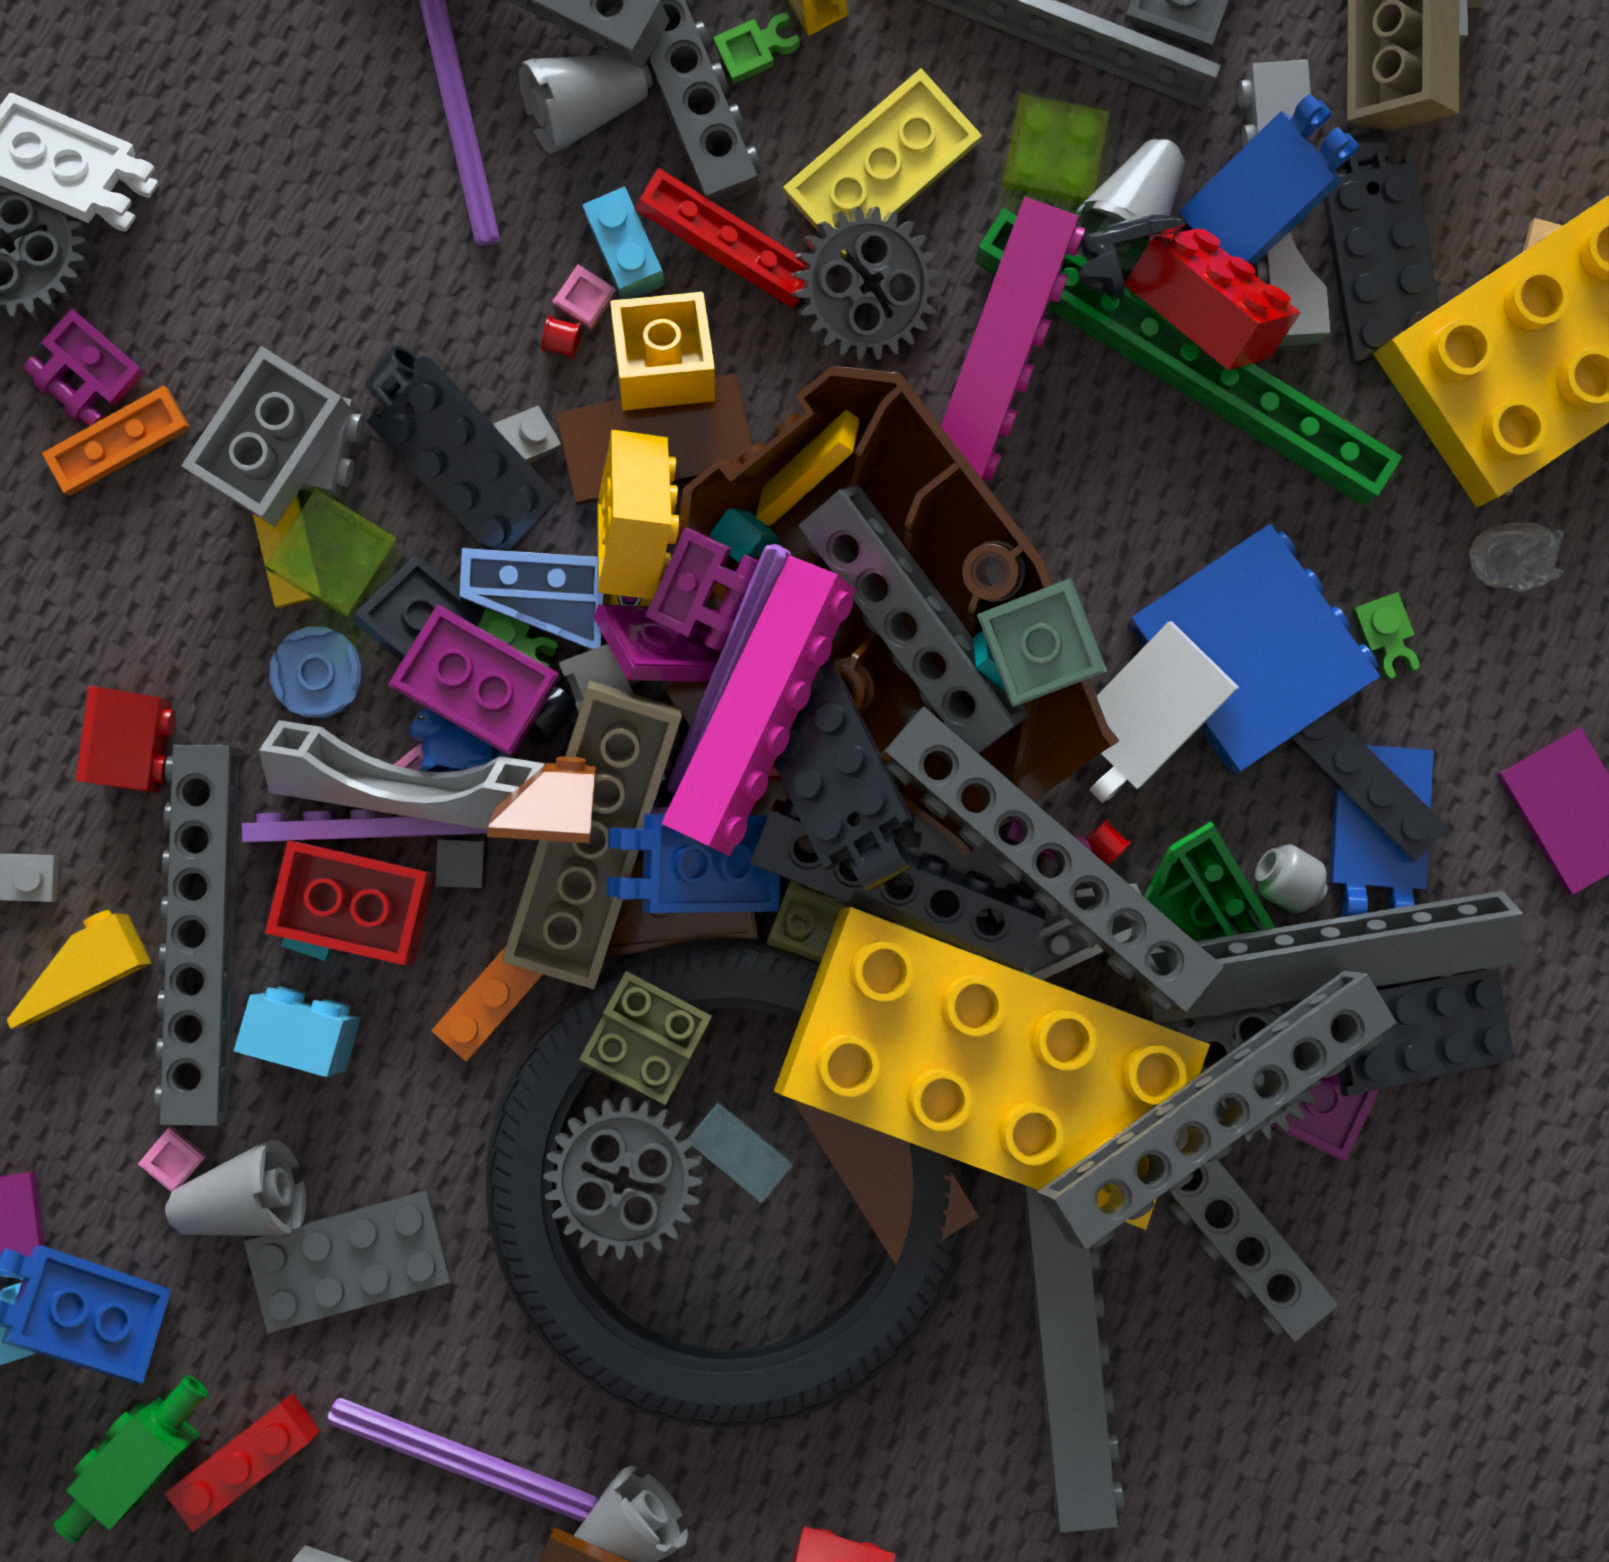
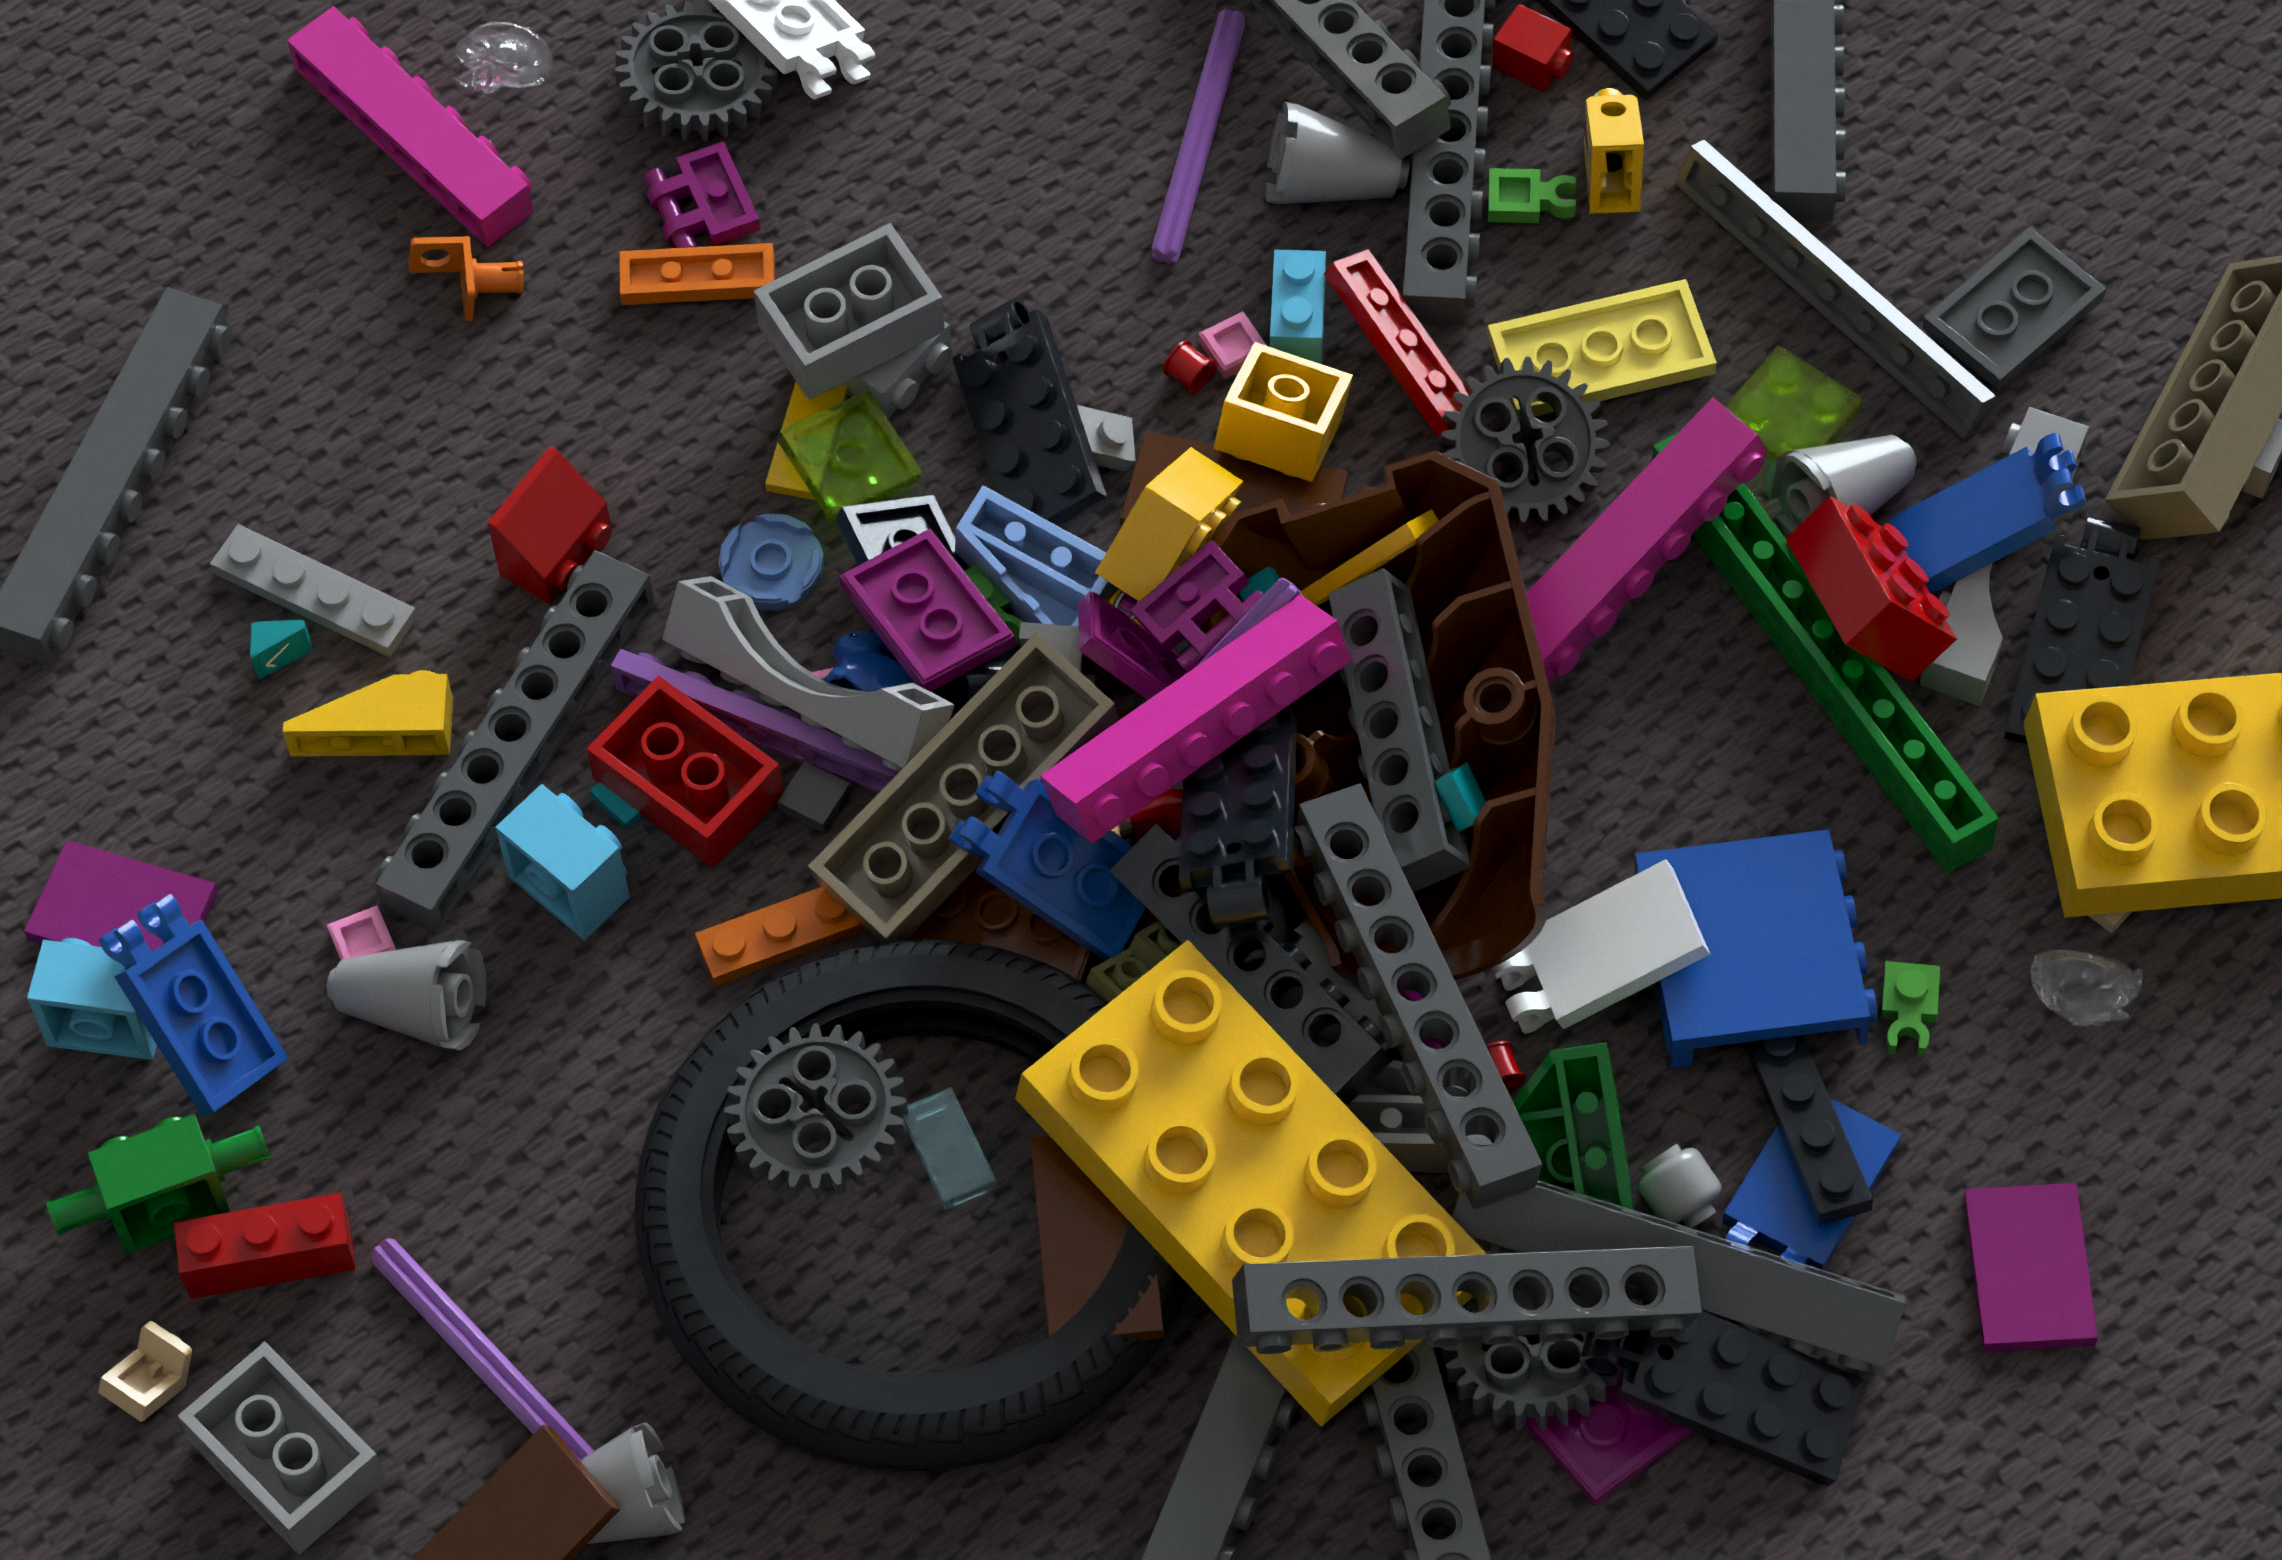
camera: 30 degrees right, 25 degrees down
(348, 1261) = (482, 1115): dark grey plate -> none
(549, 805) = (939, 711): slope -> none
(645, 1039) = (912, 998): olive slope -> none
(1042, 642) = (1511, 777): sand green tile -> none
(1104, 268) = (1791, 480): black hair -> none

